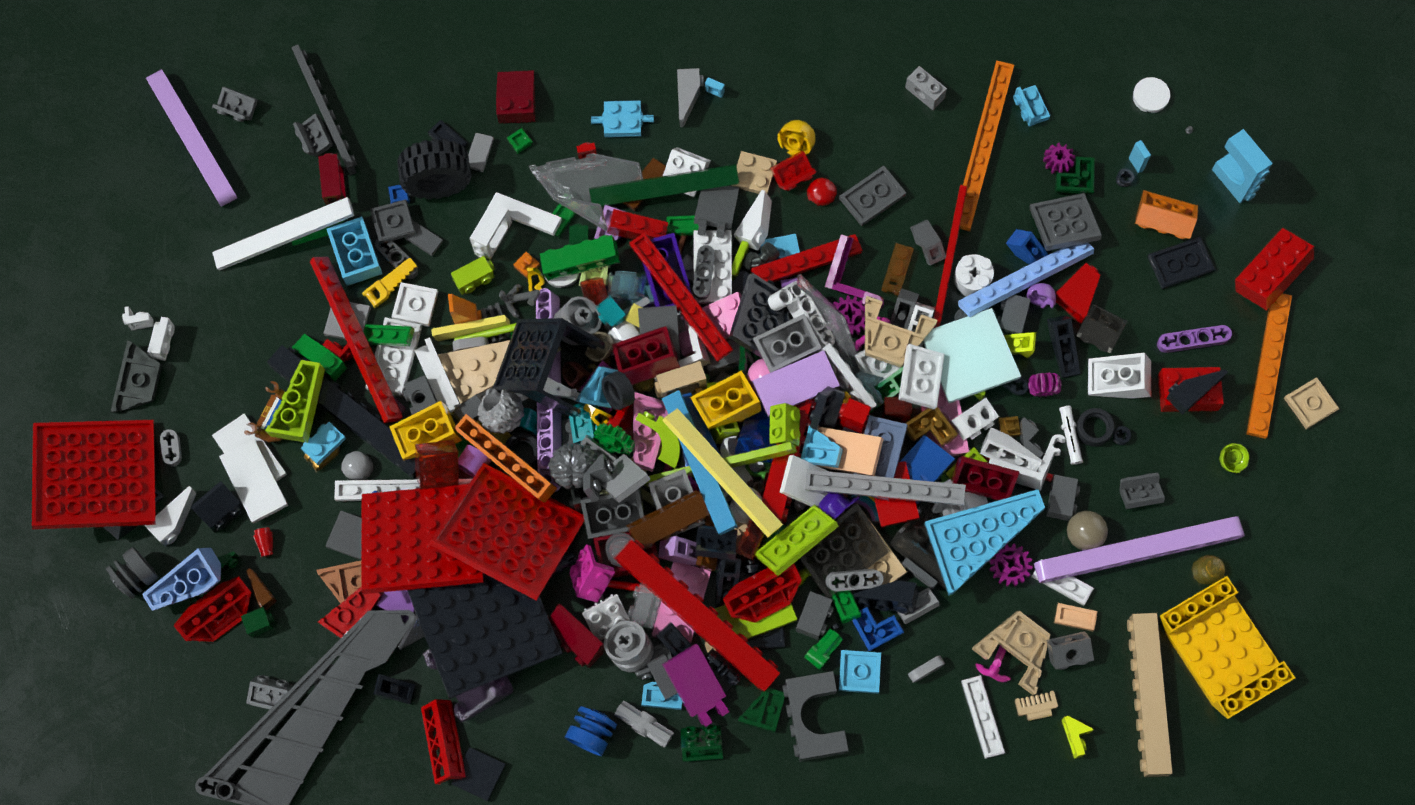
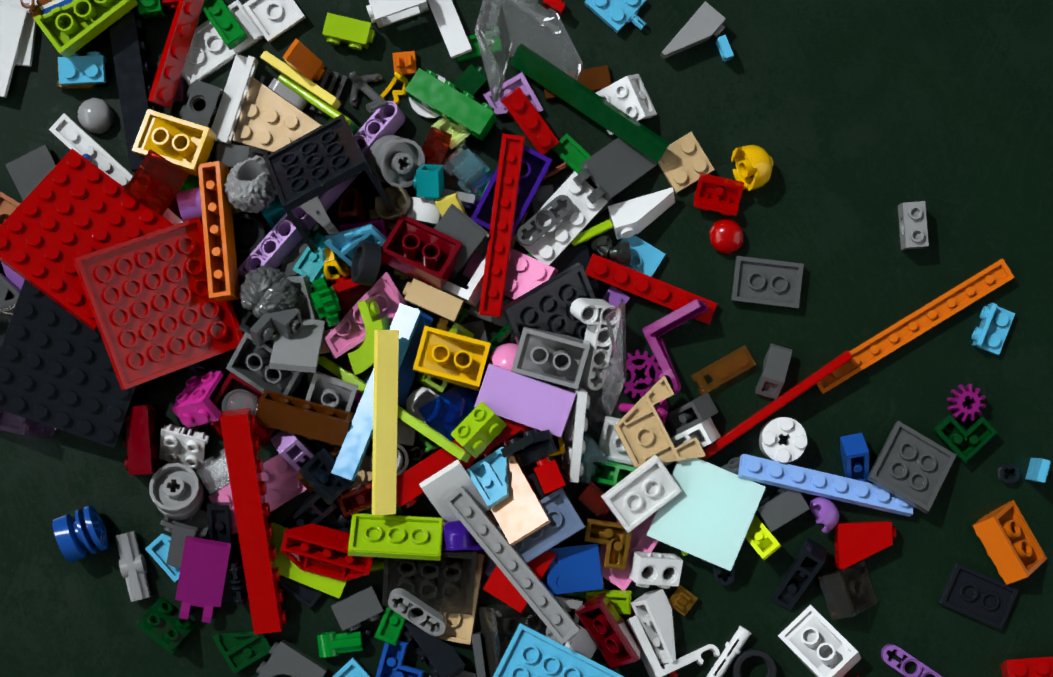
camera: 40 degrees right, 15 degrees up
(1028, 432) = (691, 622): dark grey slope -> none
(1044, 384) = (746, 595): magenta gear -> none

